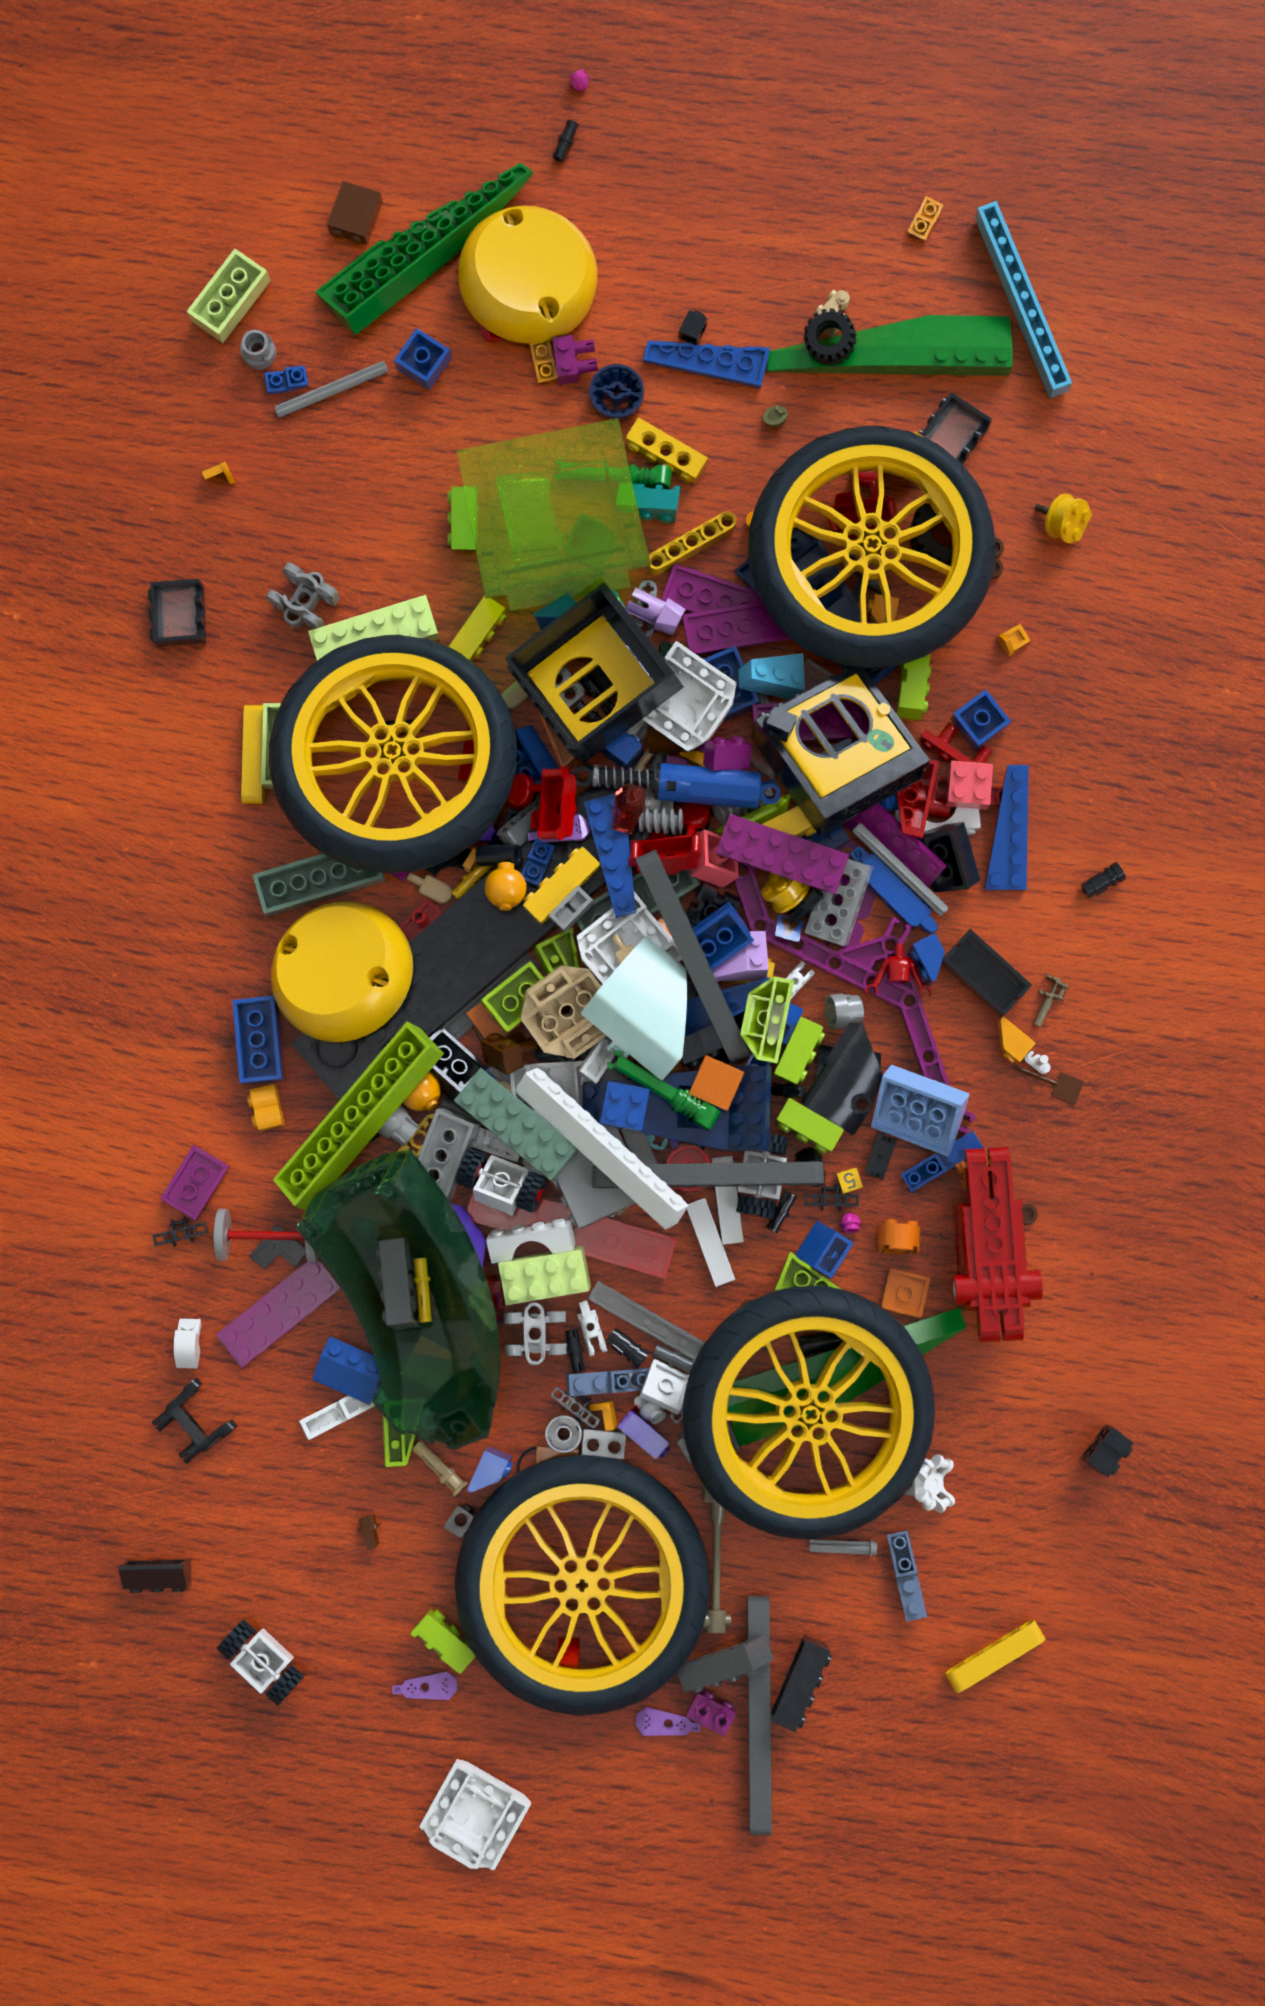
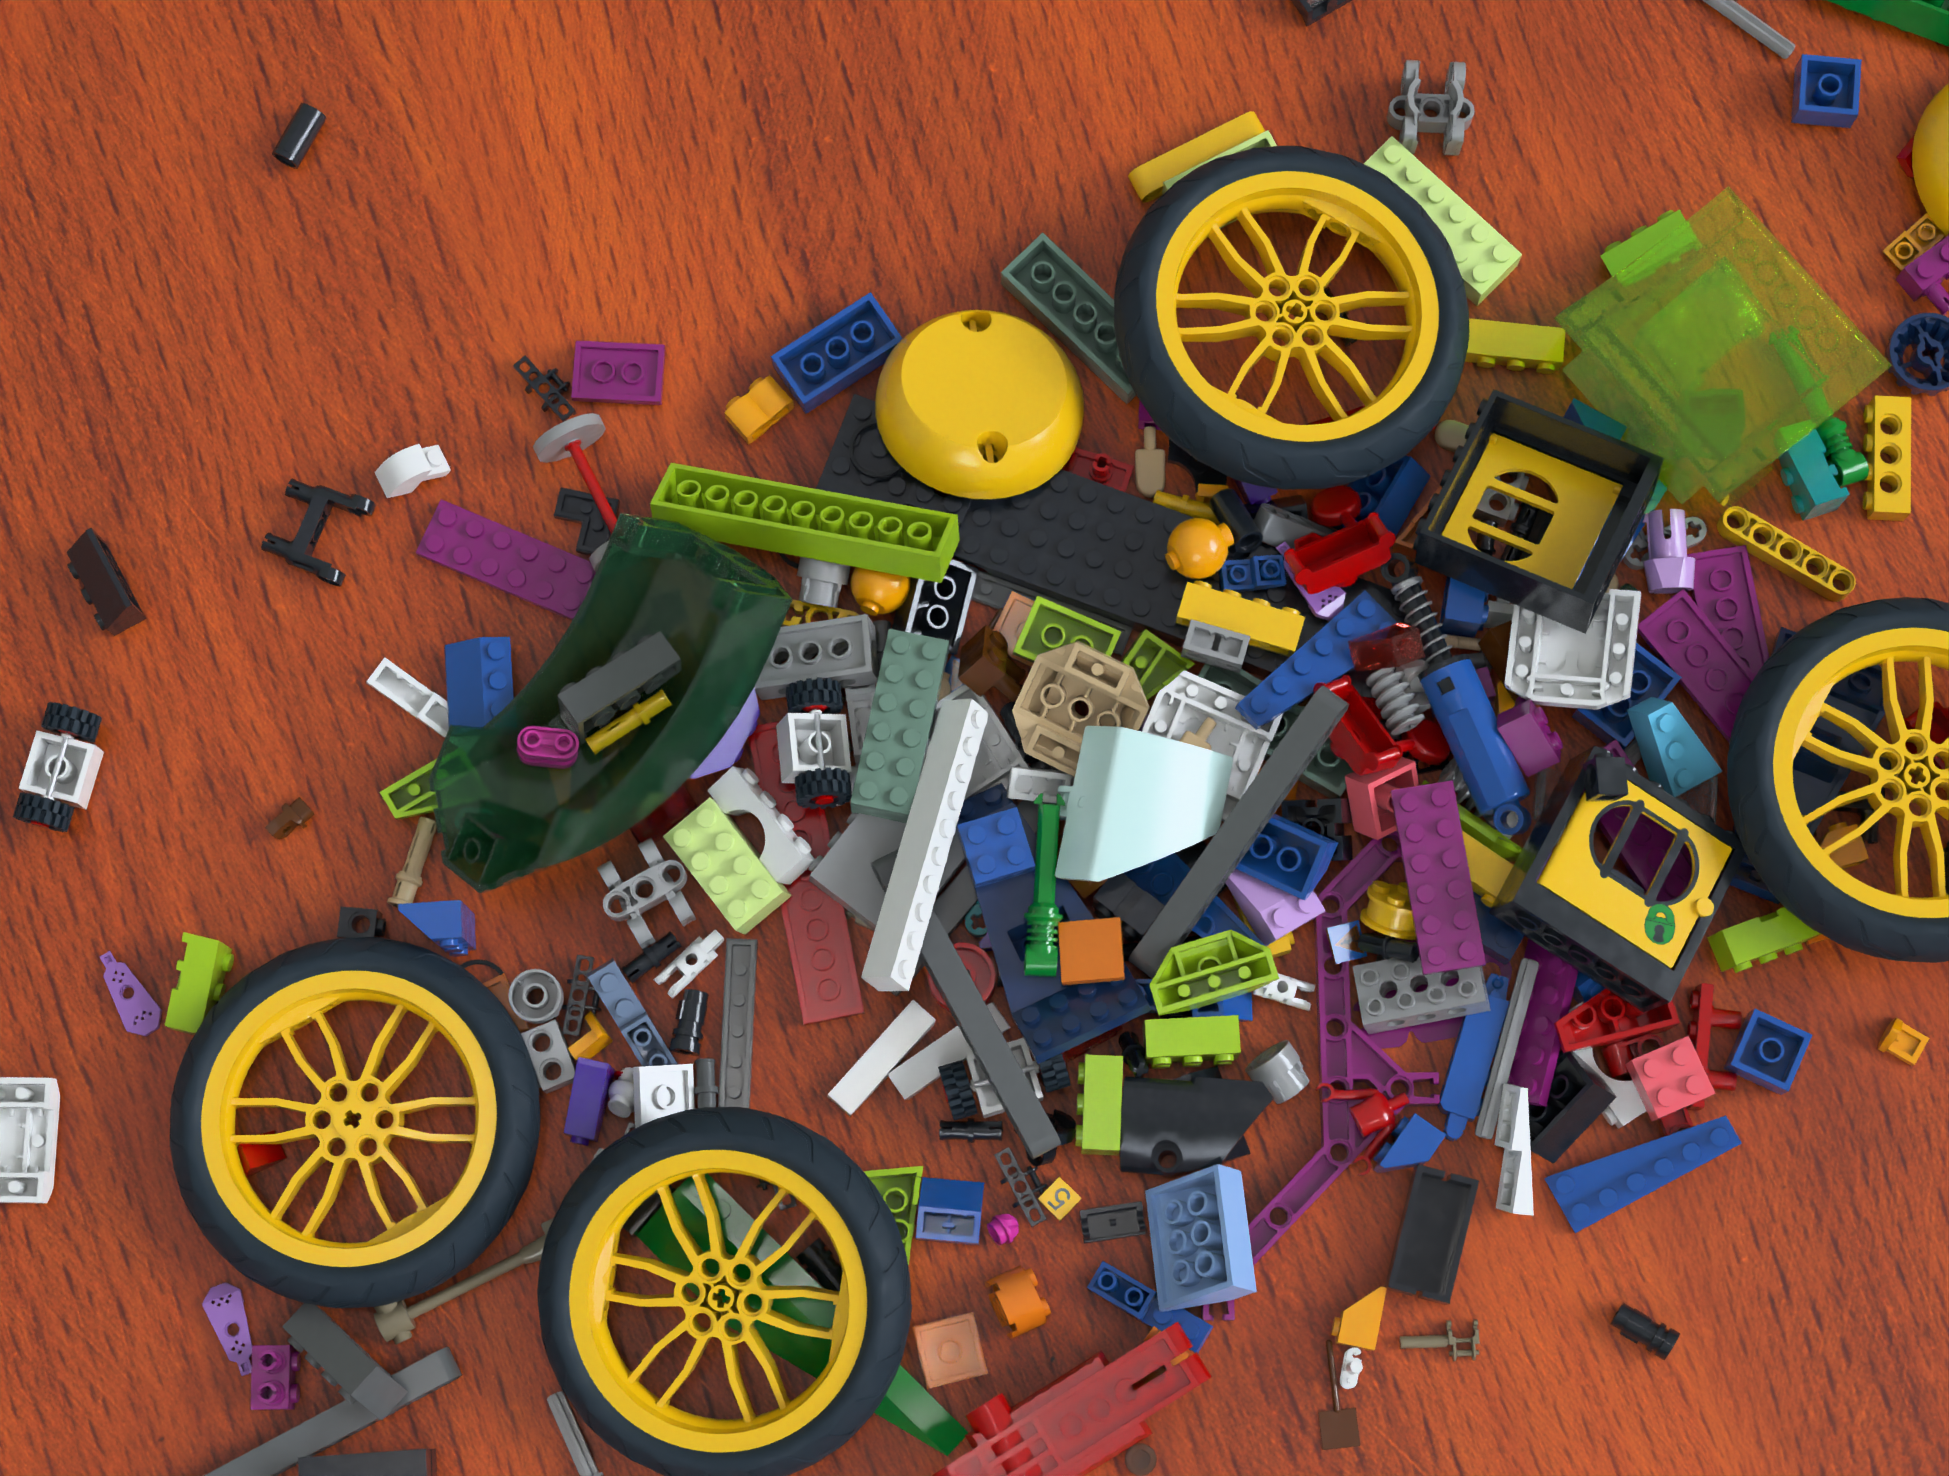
camera: 60 degrees right, 5 degrees down
(413, 1348) = (547, 747): none -> dark pink brick
(954, 893) = (1513, 1135): none -> white slope

